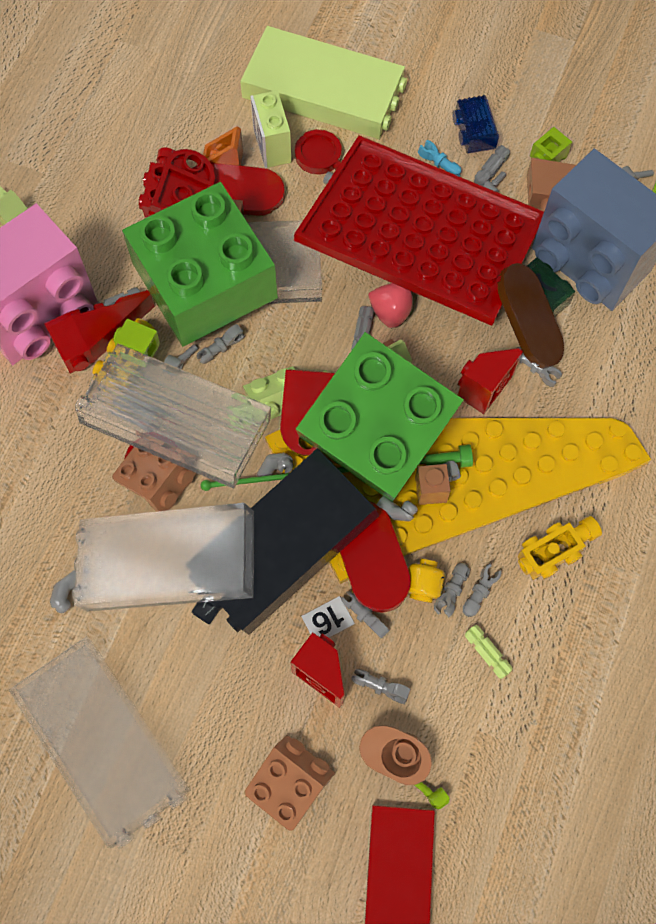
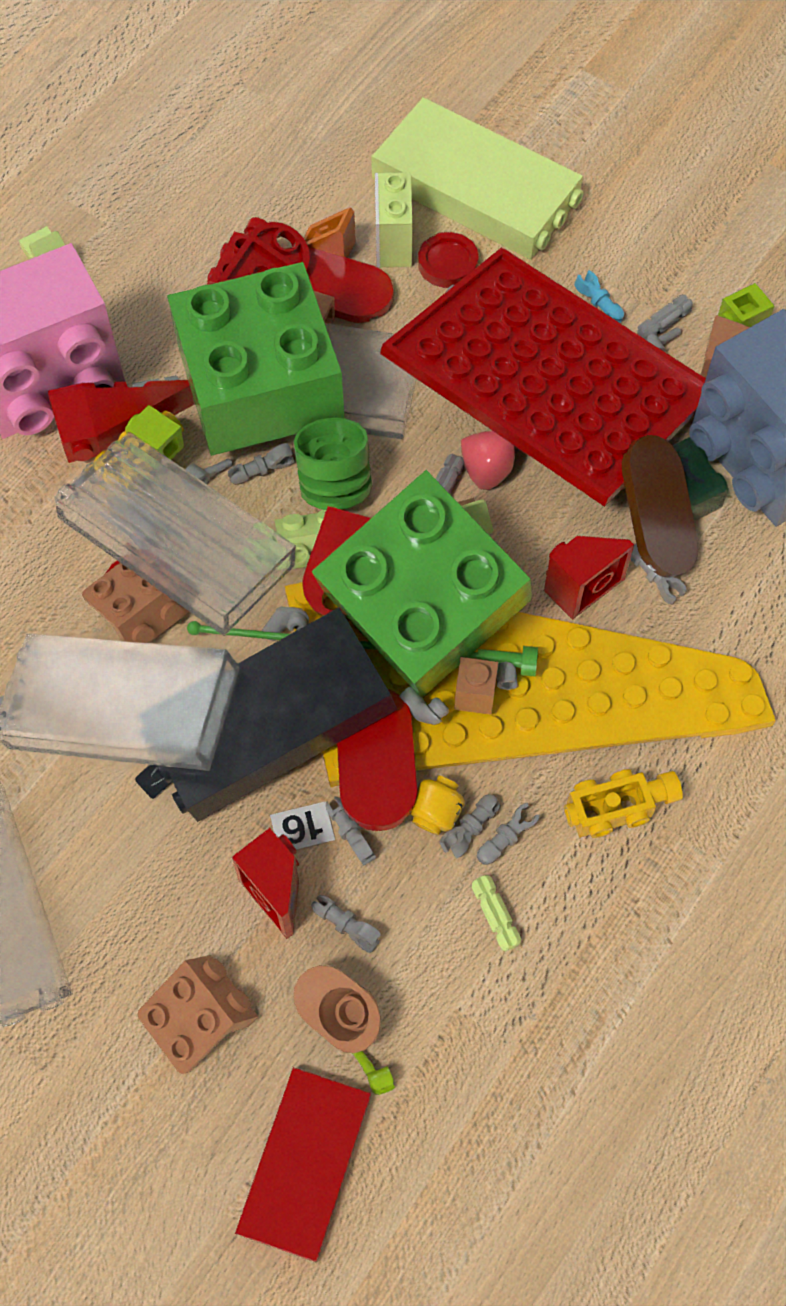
camera: 15 degrees right, 5 degrees down
(278, 333) = (333, 463): none -> bright green wheel
(475, 124) = (657, 263): clear blue brick -> none

